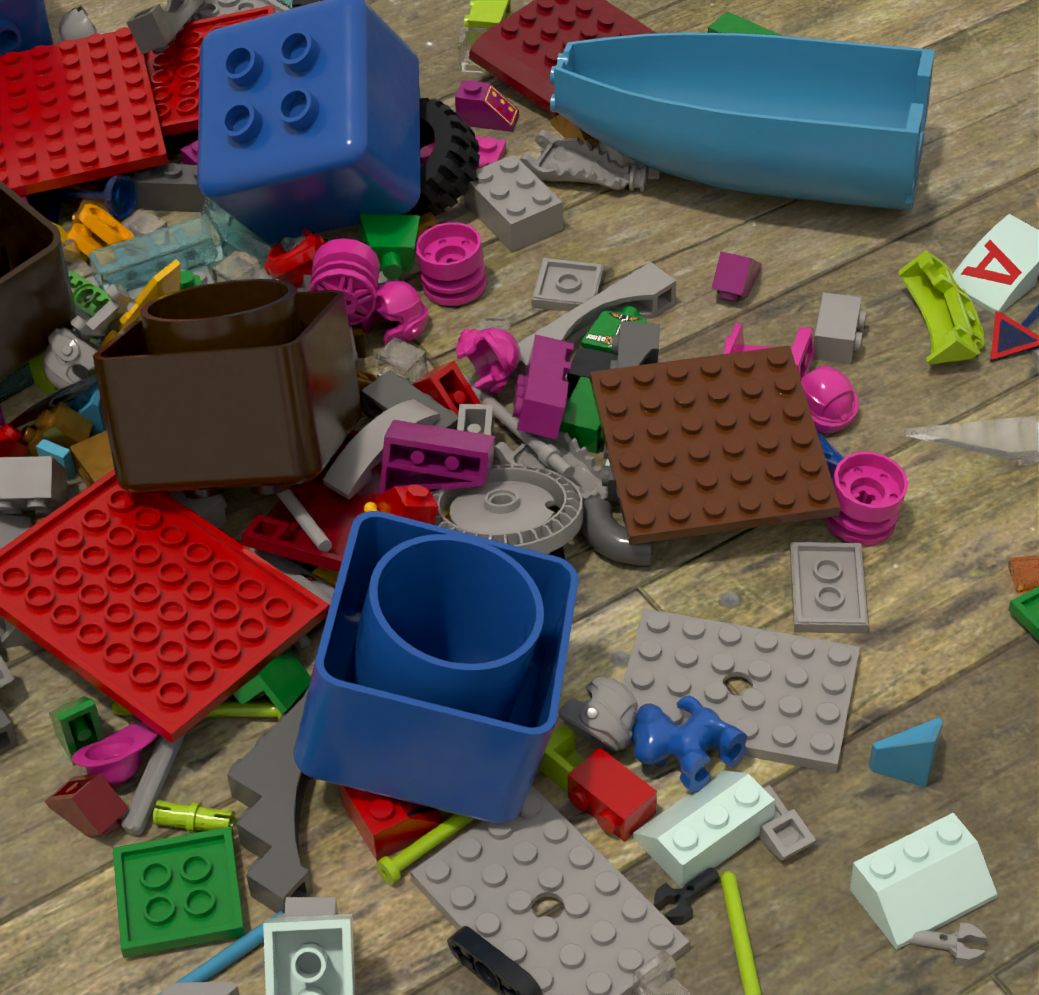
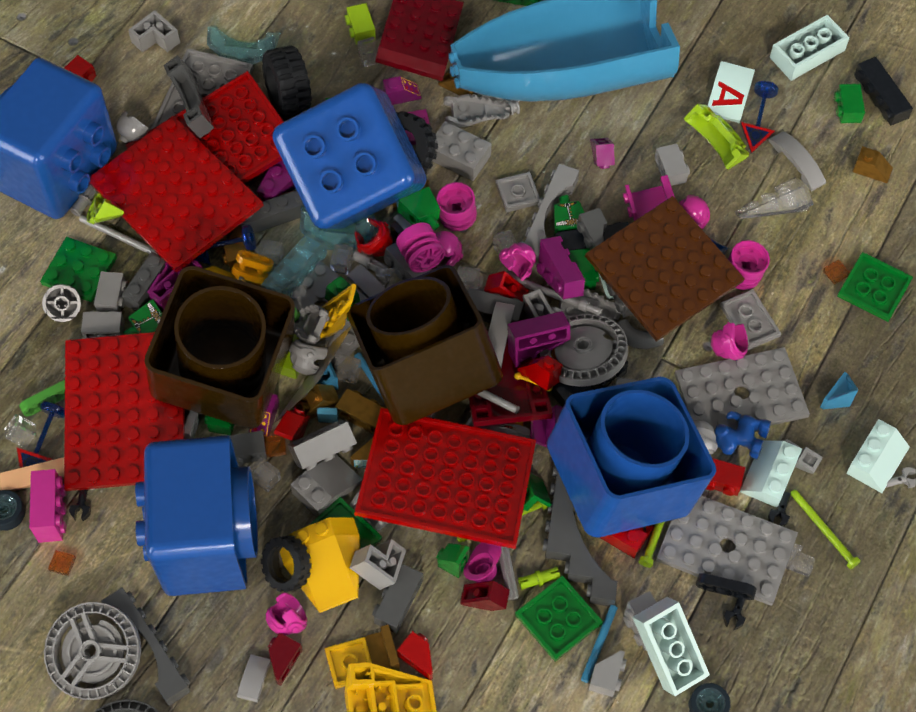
camera: 30 degrees left, 15 degrees up
(753, 603) = (730, 342): none -> dark pink helmet

